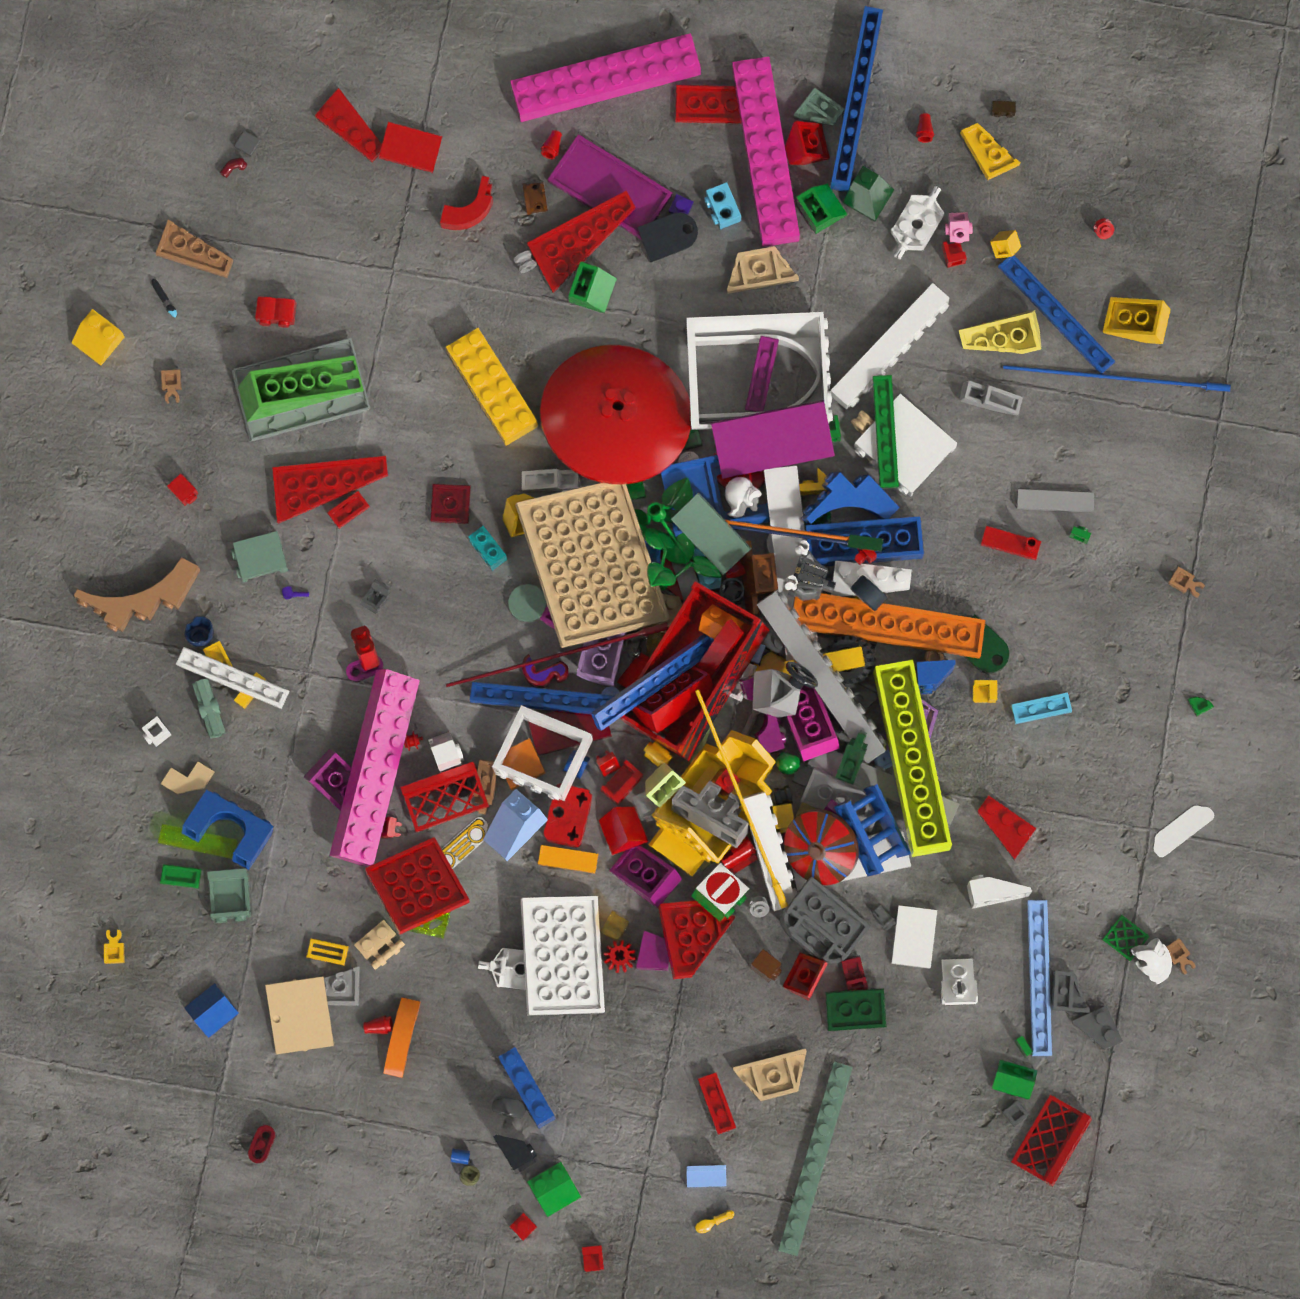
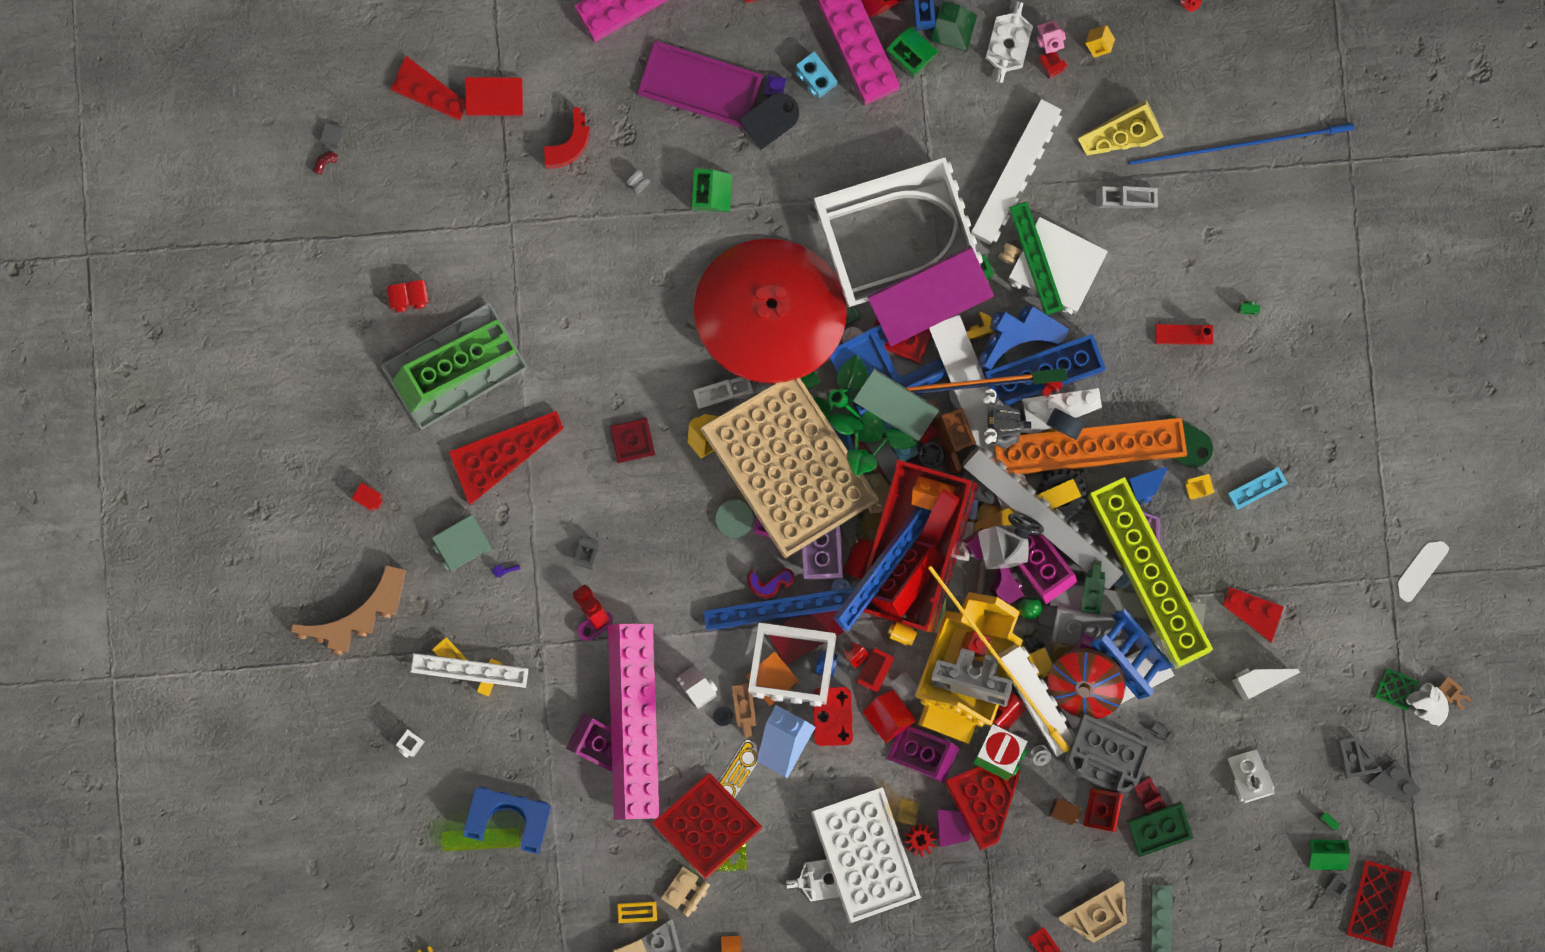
camera: 25 degrees left, 5 degrees up
(97, 337) = (239, 368): yellow slope -> none
(165, 300) = (293, 310): black piece -> none
(171, 382) = (325, 393): medium nougat plate -> none
(180, 876) = (474, 877): green tile -> none
(186, 249) = (302, 256): medium nougat wing -> none
(196, 780) = (448, 787): tan tile -> none
(199, 631) = (423, 633): dark blue hair -> none
(209, 708) = (454, 706): sand green piece -> none
(229, 895) = (527, 883): sand green panel -> none
(348, 509) = (535, 473): red plate -> none
(389, 828) = (664, 775): tile -> none
(412, 740) = (661, 684): red wheel -> none
(440, 780) = (698, 718): red fence -> none
(487, 548) = (681, 475): teal brick -> none
(492, 386) = (641, 314): yellow brick -> none
(535, 198) = (630, 115): reddish brown piece -> none
(551, 145) = (632, 58): red cone -> none
(567, 245) = (678, 152): red wing -> none
(568, 859) = (844, 758): light orange tile -> none
(644, 632) = (860, 519): dark red piece -> none
(662, 784) = (917, 663): yellowish green torso -> none
(740, 495) = (913, 358): white hair -> none
(759, 270) = (868, 129): tan wing -> none
(761, 374) = (900, 233): magenta tile -> none
(914, 937) = (1196, 743): white tile -> none
(933, 656) = (1140, 468): medium nougat tile -> none
(1039, 978) = (1325, 750): light blue tile -> none
(1055, 500) = (1215, 281): light grey tile -> none
(1056, 314) = (1167, 97): blue tile -> none
(1137, 319) = (1246, 82): yellow slope -> none
(1183, 580) = (1359, 328): medium nougat plate -> none
(1200, 705) = (1406, 444): green tile -> none

